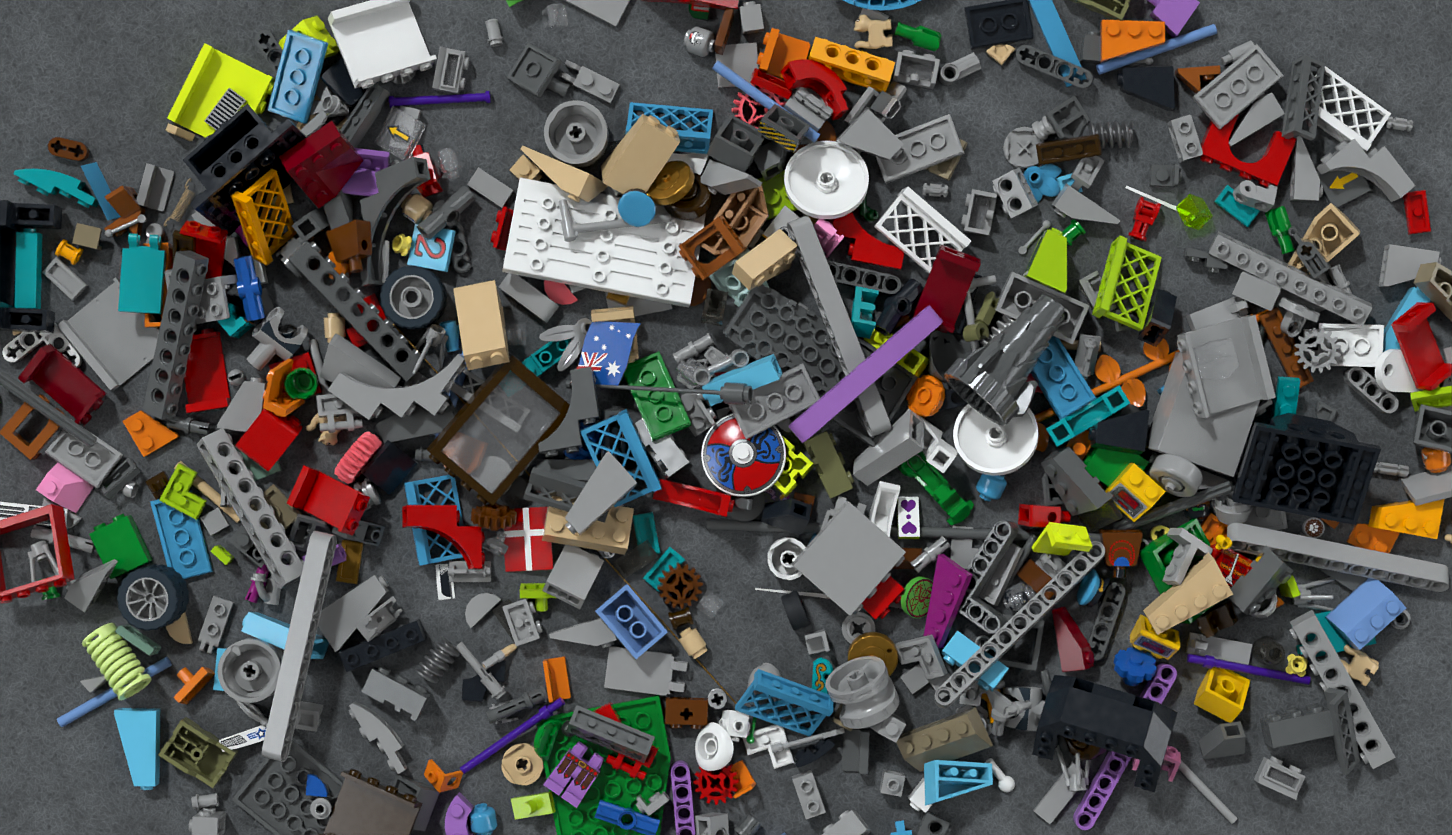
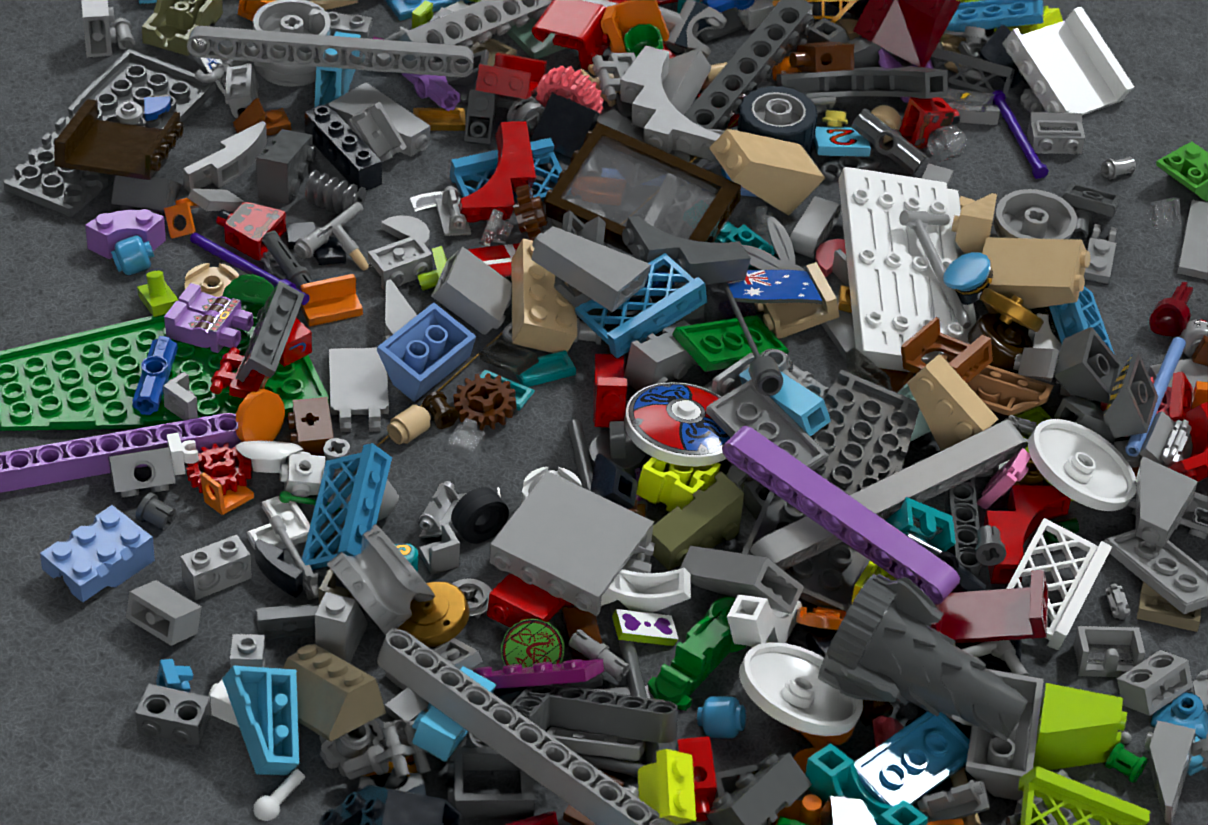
camera: 75 degrees right, 45 degrees down
(335, 703) = (254, 113): none -> dark orange slope
(432, 751) = (215, 199): none -> light grey tile
(465, 727) = (248, 225): none -> red torso
(674, 54) = (1172, 314): none -> dark red piece
(681, 749) = (260, 416): none -> orange tile
(704, 810) = (181, 453): none -> white tile
(774, 208) = (1024, 426): none -> light grey piece
(782, 633) = (439, 511): none -> light grey hinge
(891, 270) = (989, 547): none -> dark grey bush

